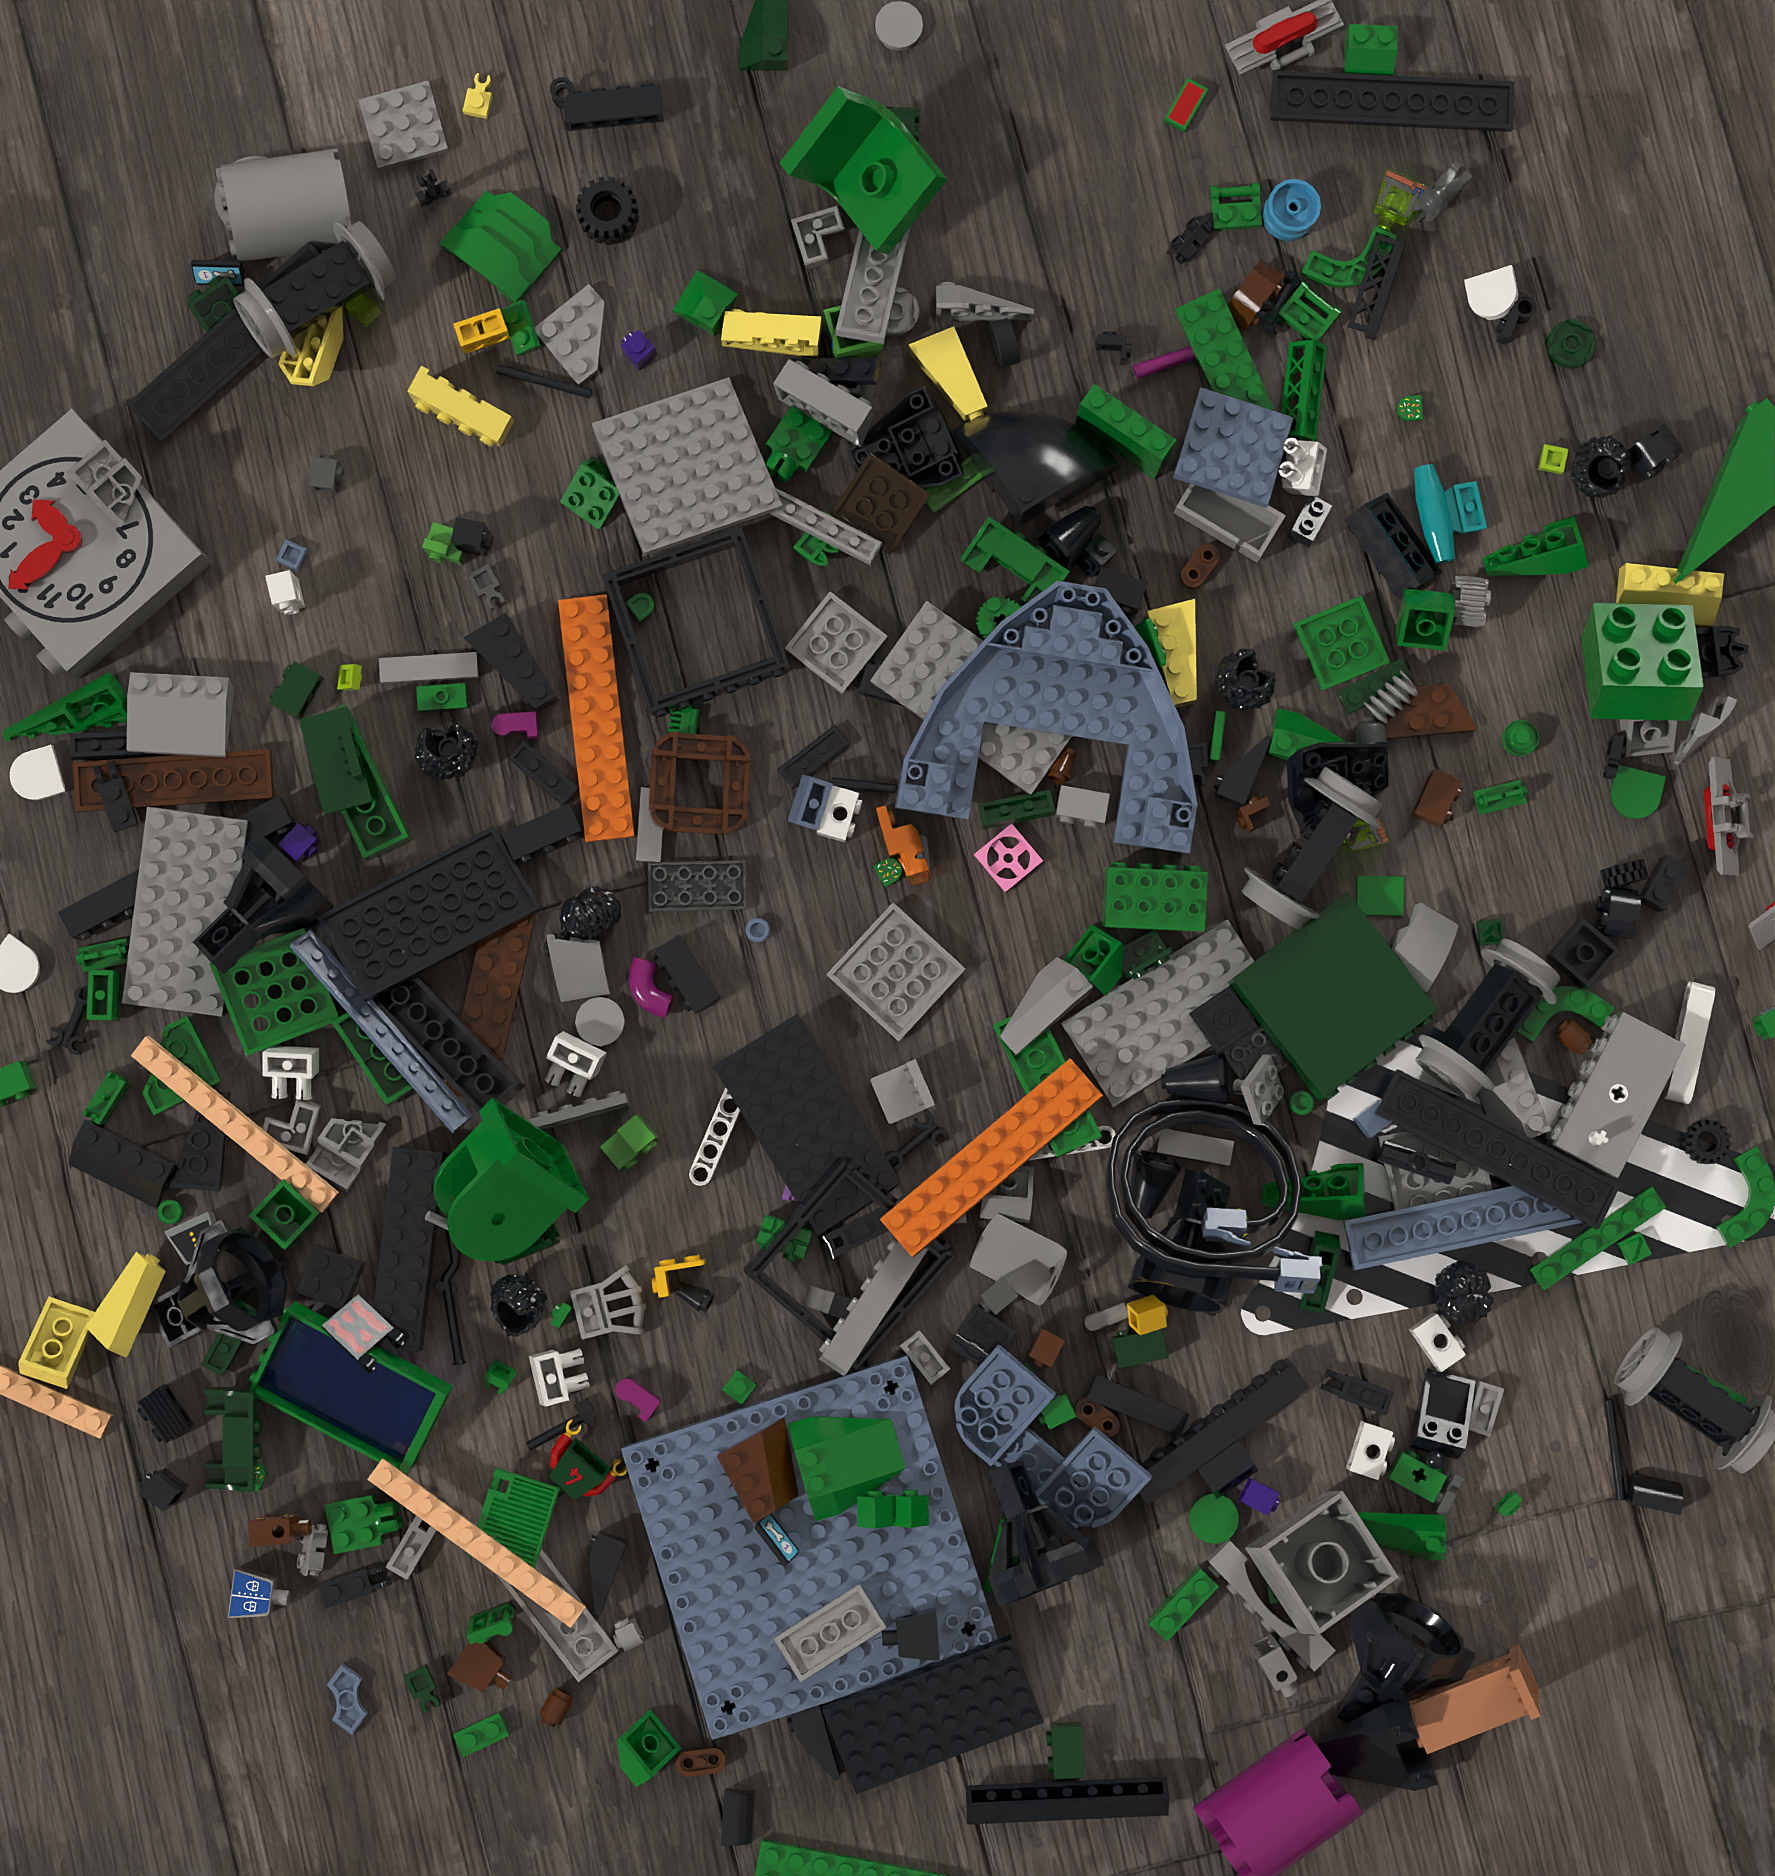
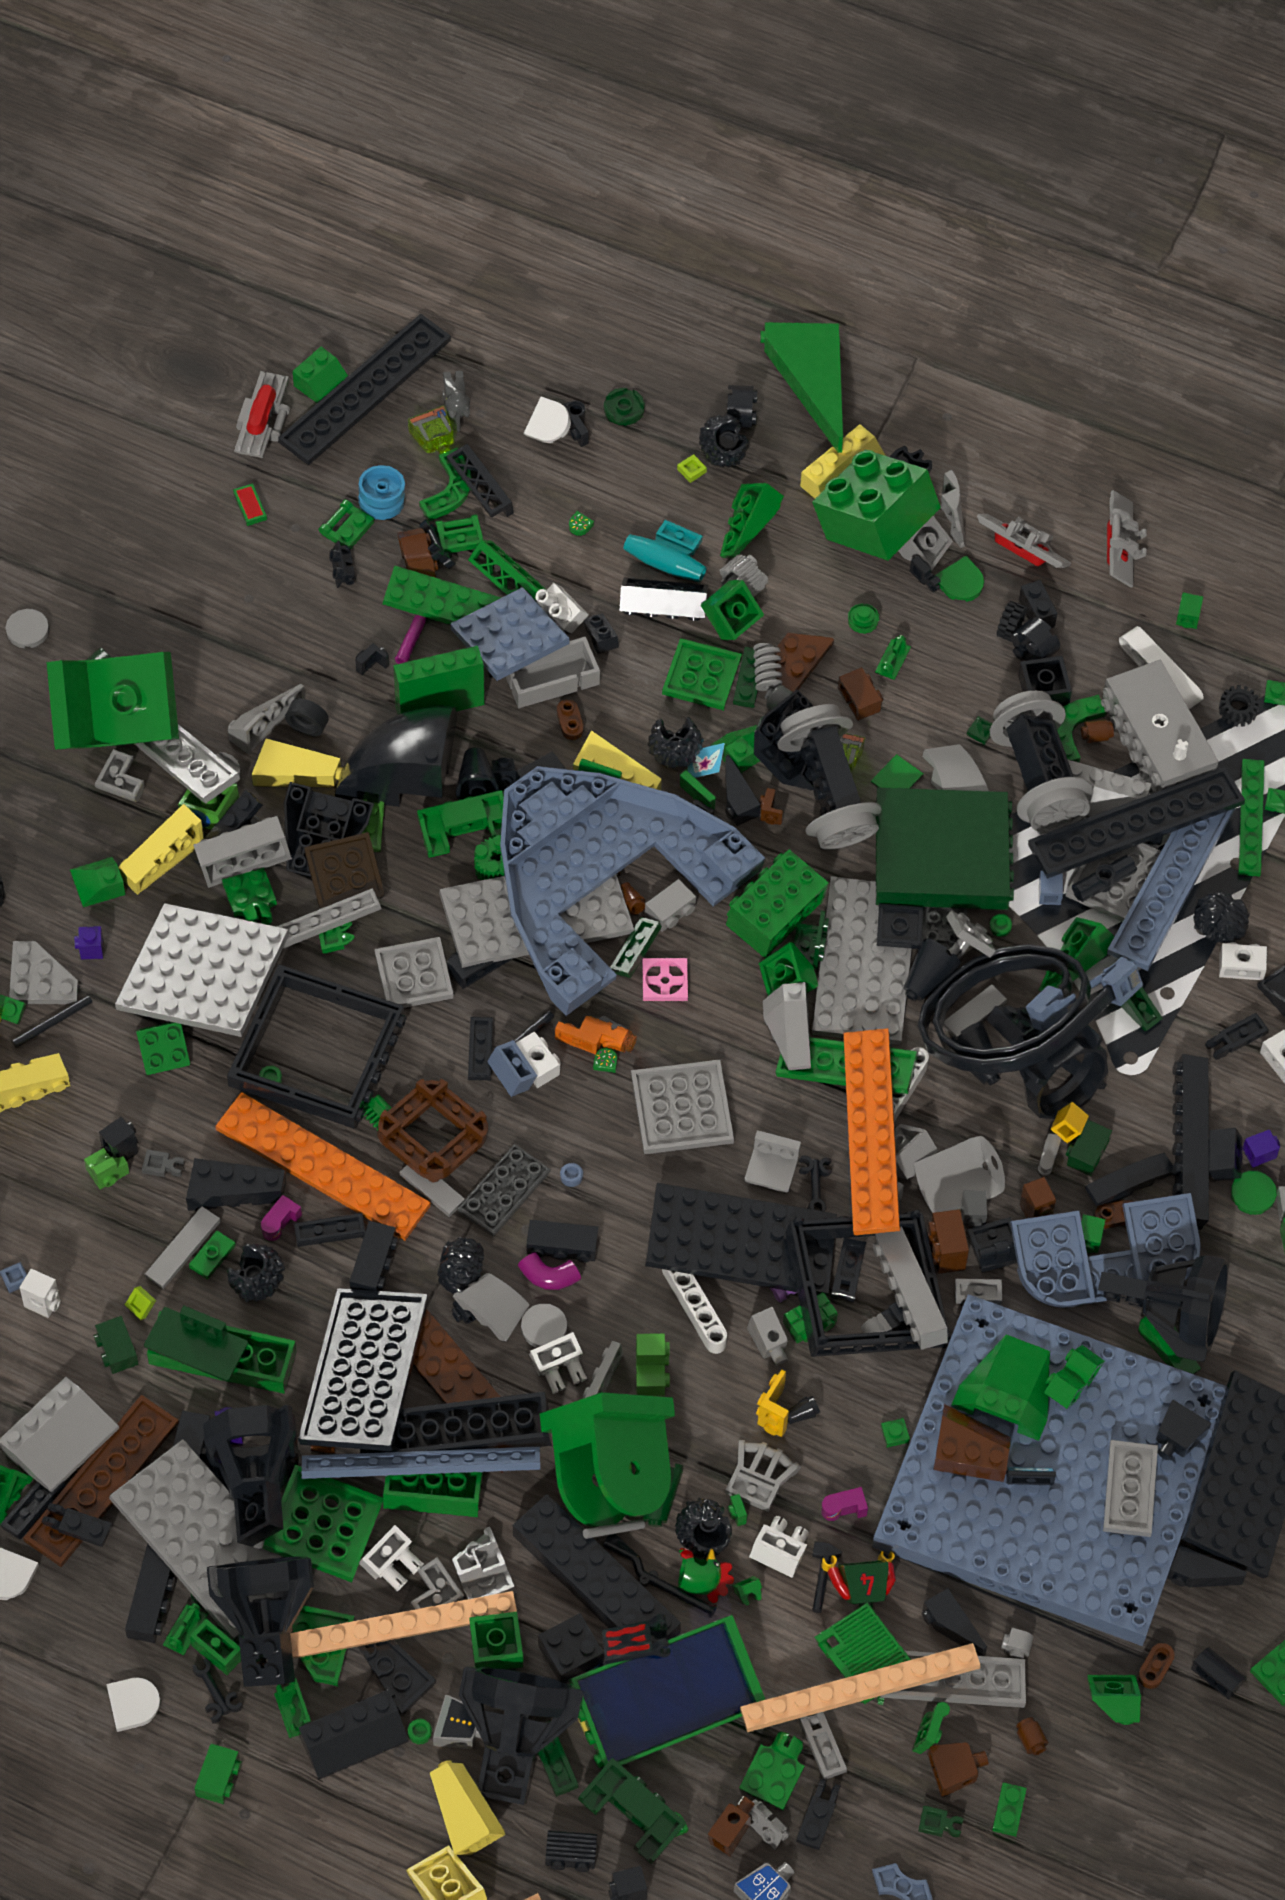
camera: 50 degrees left, 25 degrees down
(139, 1019) = (265, 1622): none -> black plate
(479, 1334) = (704, 1576): none -> green piece
(740, 1210) = (768, 1335): none -> light grey torso
(945, 1299) = (948, 1241): none -> reddish brown brick
(1252, 722) = (707, 761): none -> sticker

